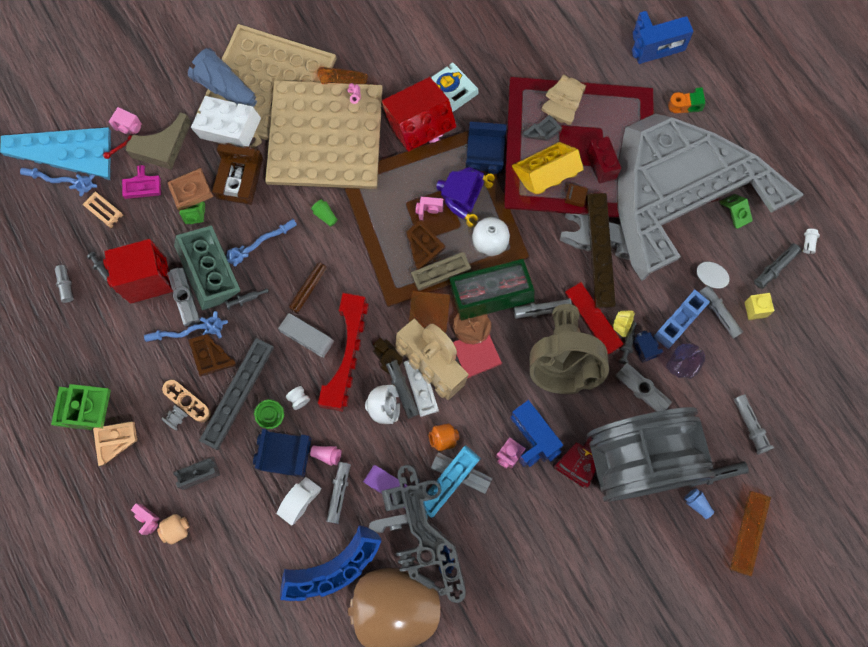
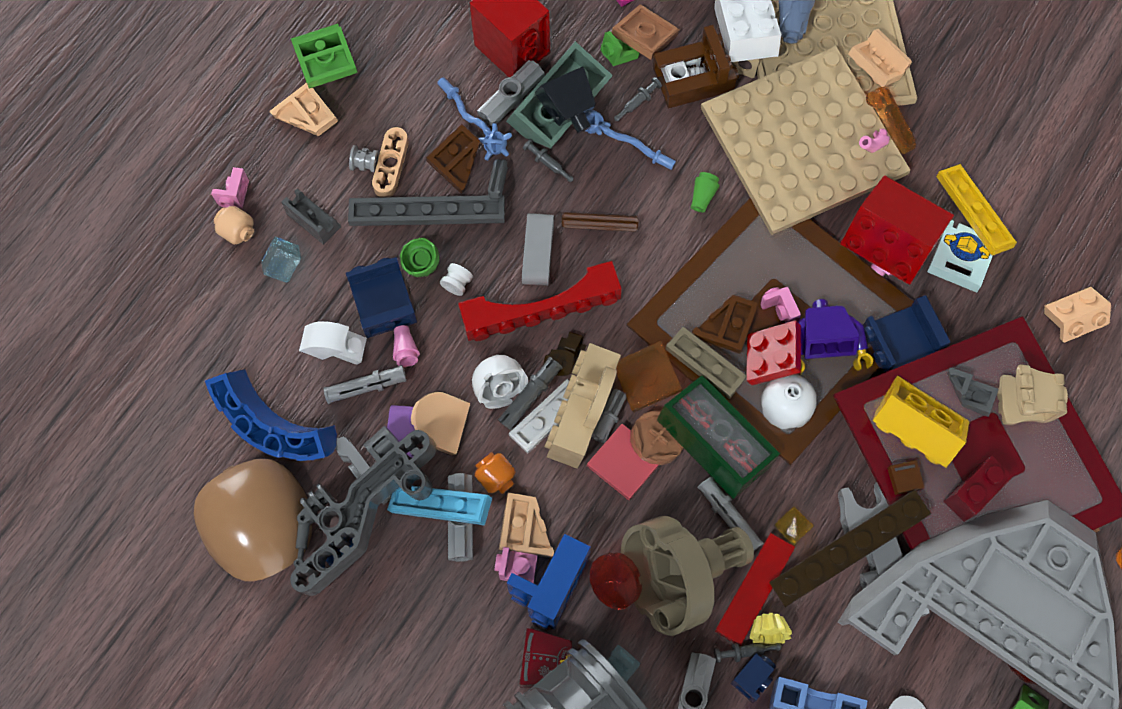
camera: 60 degrees right, 5 degrees down
(216, 260) = (568, 99): none -> black torso
(217, 508) = (281, 259): none -> clear light blue panel
(235, 218) = (642, 95): none -> dark grey piece
(242, 336) = (497, 179): none -> dark grey axle
(298, 59) = (880, 59): none -> light nougat bracket
(390, 454) = (442, 419): none -> light nougat tile
(426, 63) = (976, 209): none -> yellow tile
(459, 227) = (774, 353): none -> plate
(487, 436) = (523, 527): none -> light nougat wing
(522, 46) = (1079, 313): none -> light nougat bracket
(551, 397) = (615, 580): none -> clear red tile
(567, 275) = (794, 525): none -> clear yellow slope
(602, 418) = (623, 663): none -> clear light blue panel

